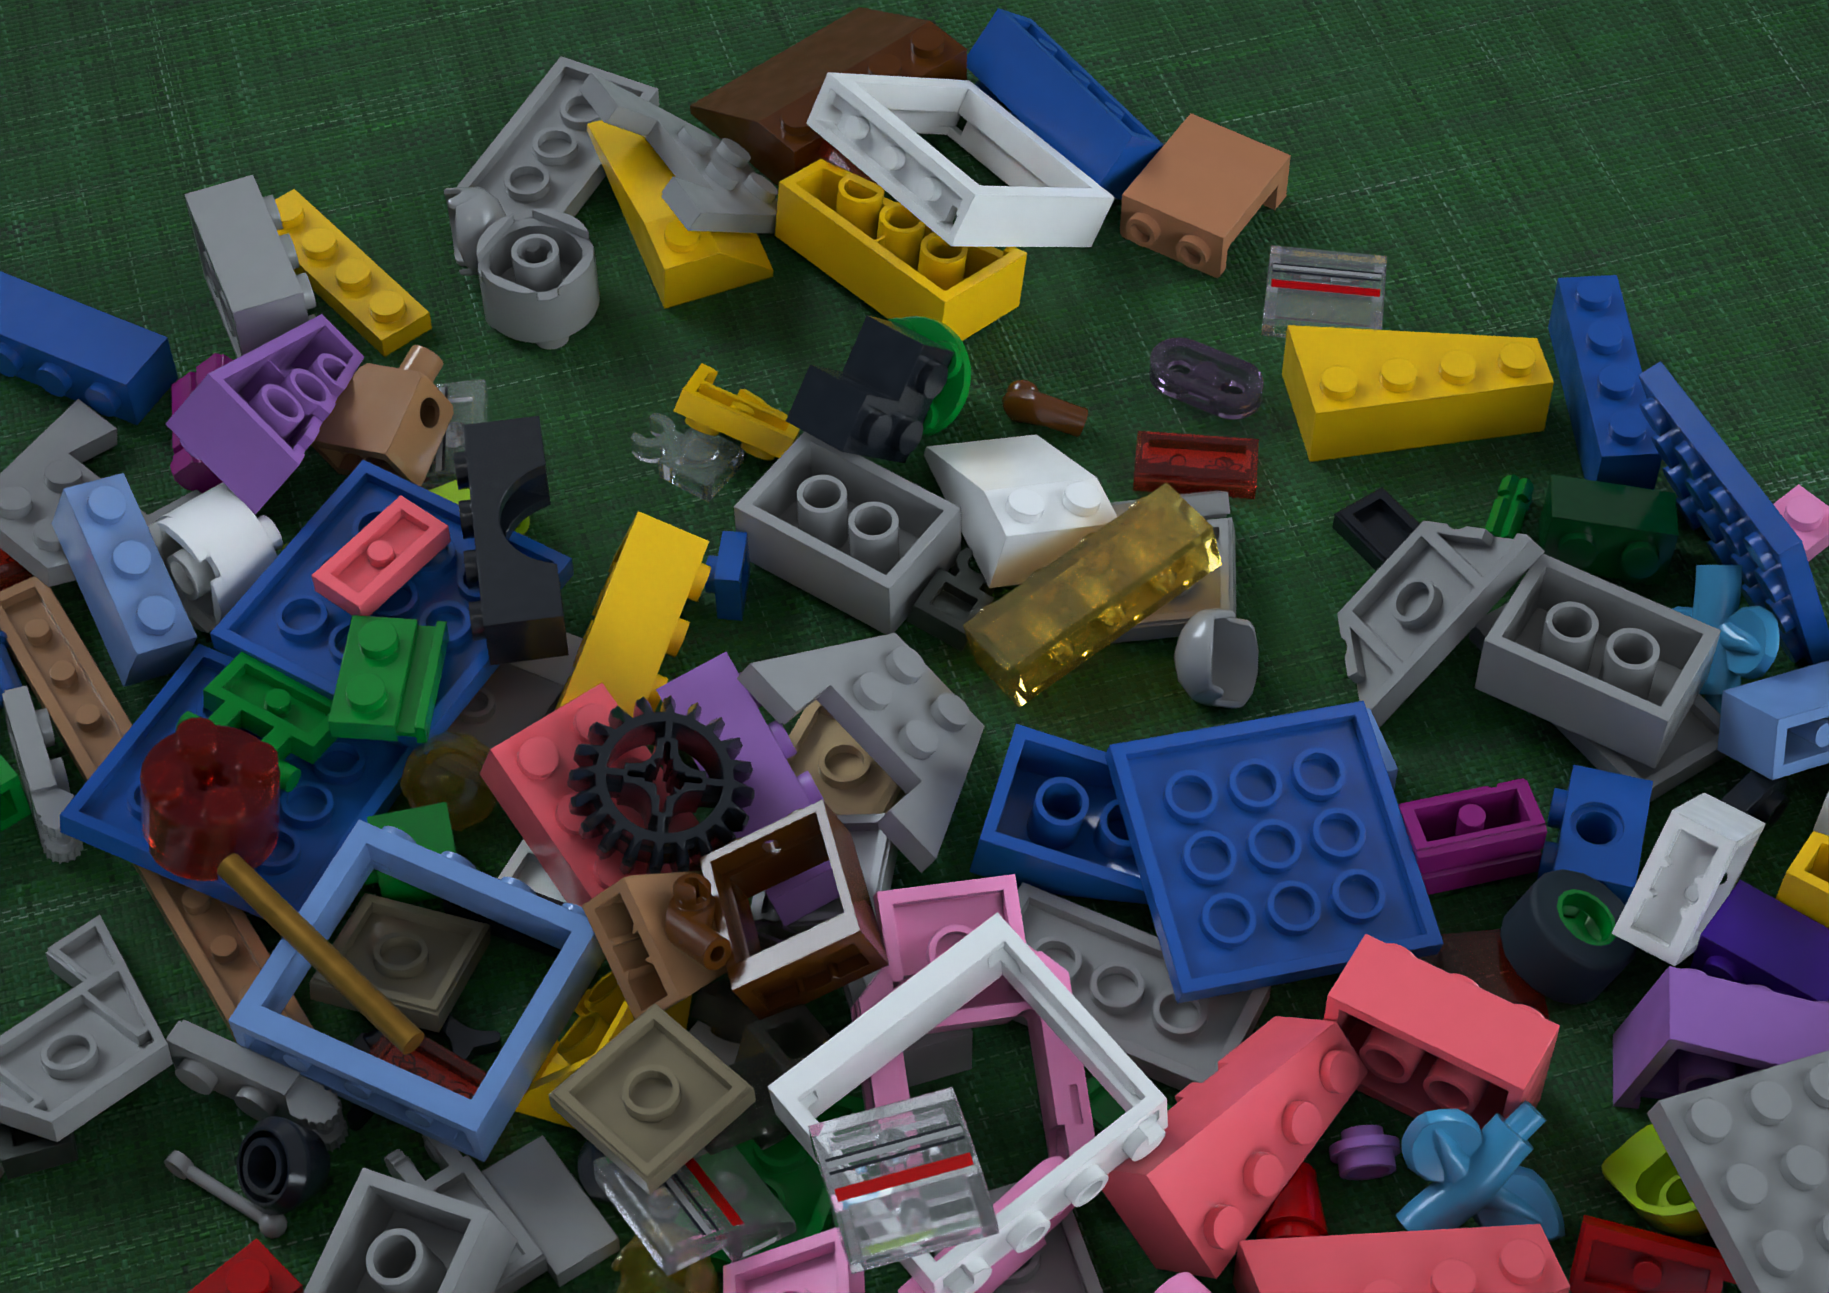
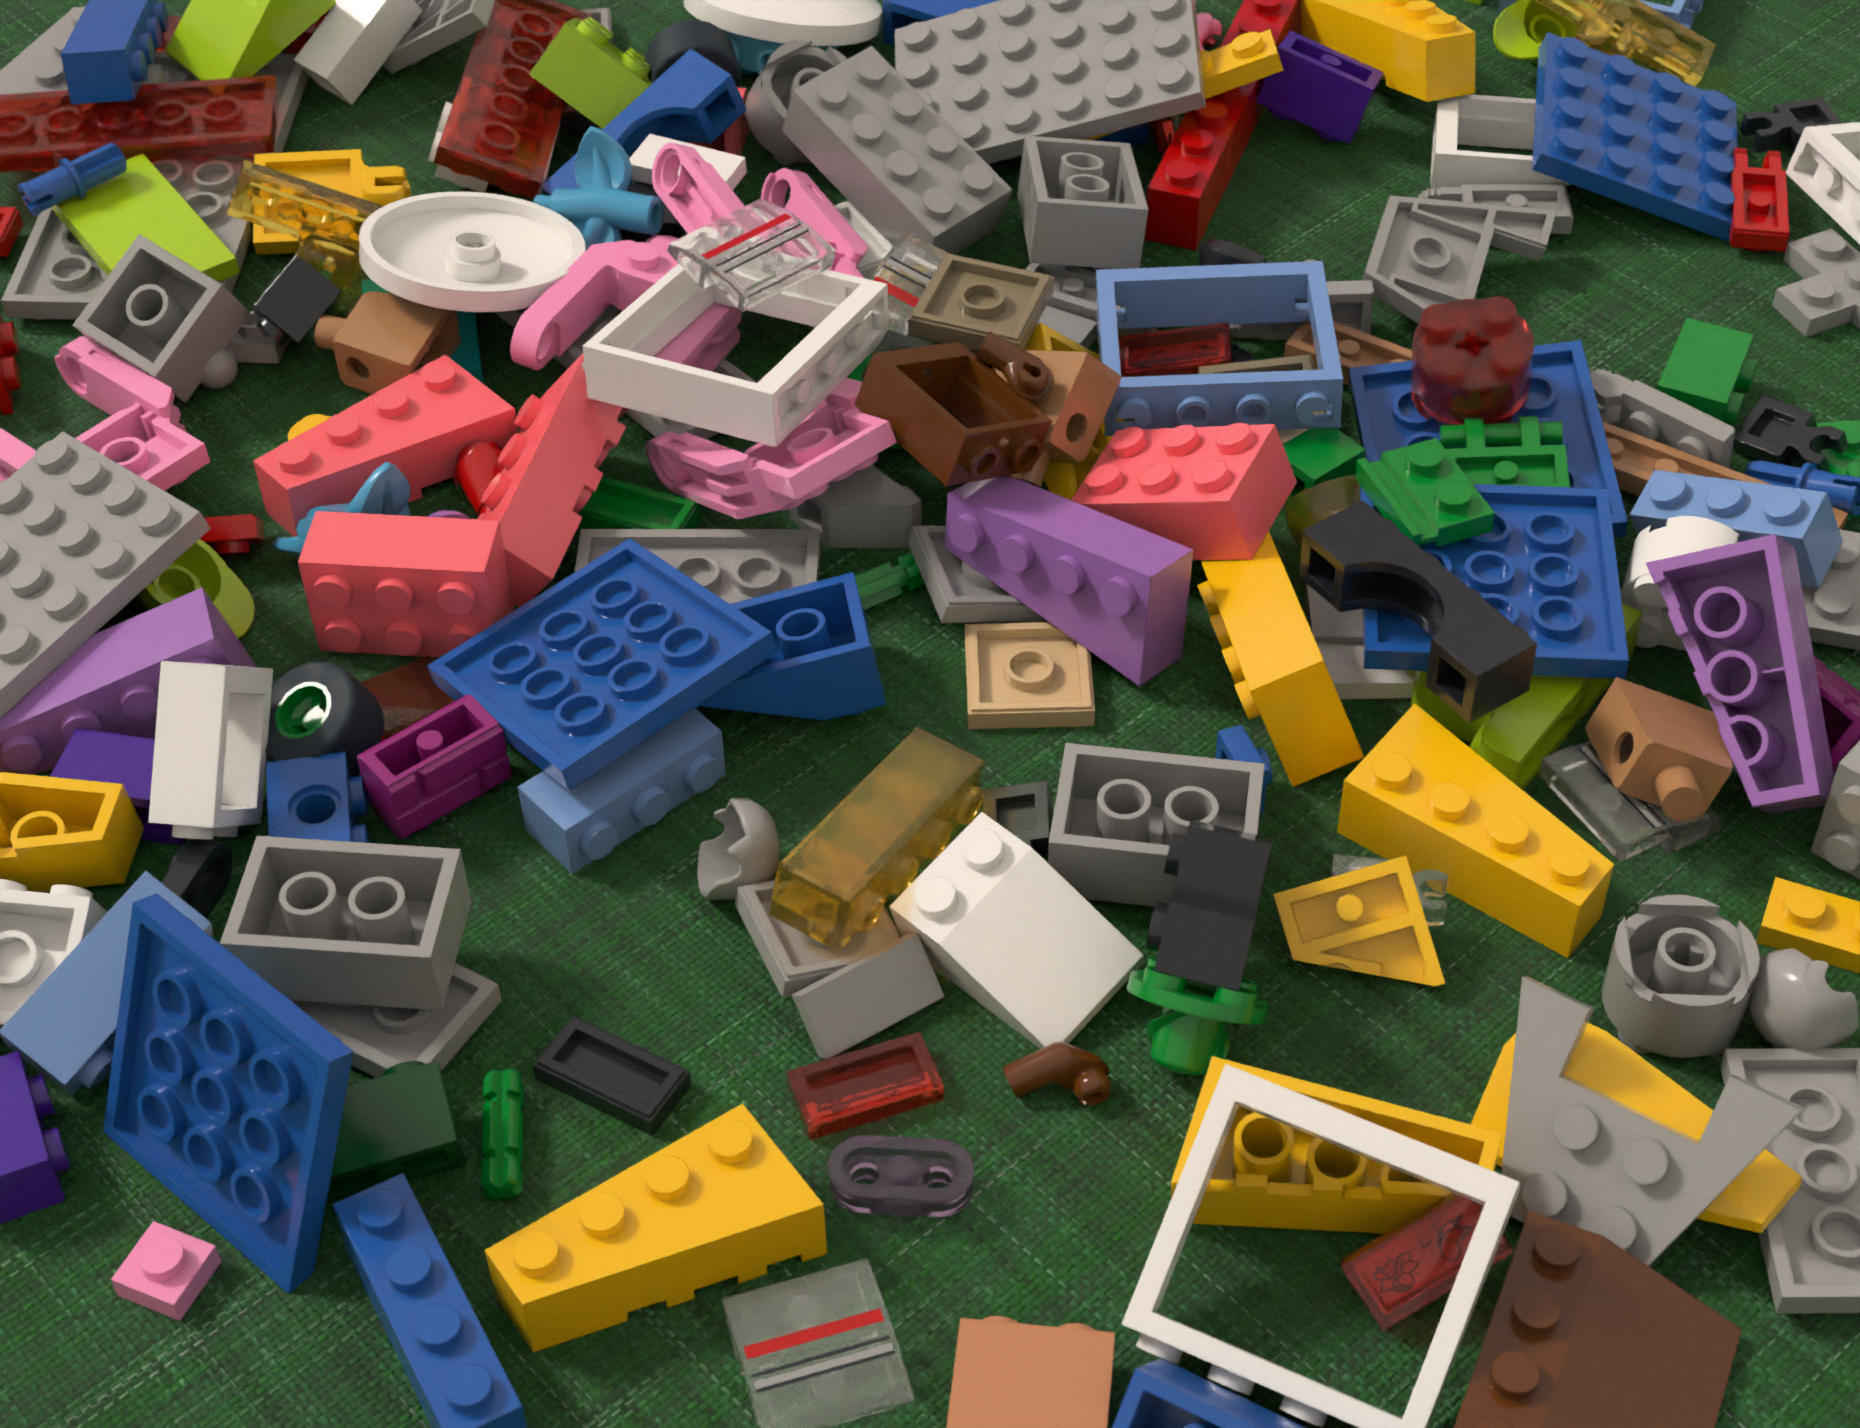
camera: 155 degrees right, 5 degrees down
(320, 954) = (1292, 298): pearl gold bar -> none
(381, 558) = (1516, 560): coral plate -> none
(593, 448) = (1459, 815): none -> yellow wedge
(635, 789) = (1118, 448): black gear -> none
(895, 714) = (1000, 672): light grey wing -> none
(1425, 606) = (542, 945): light grey wing -> none

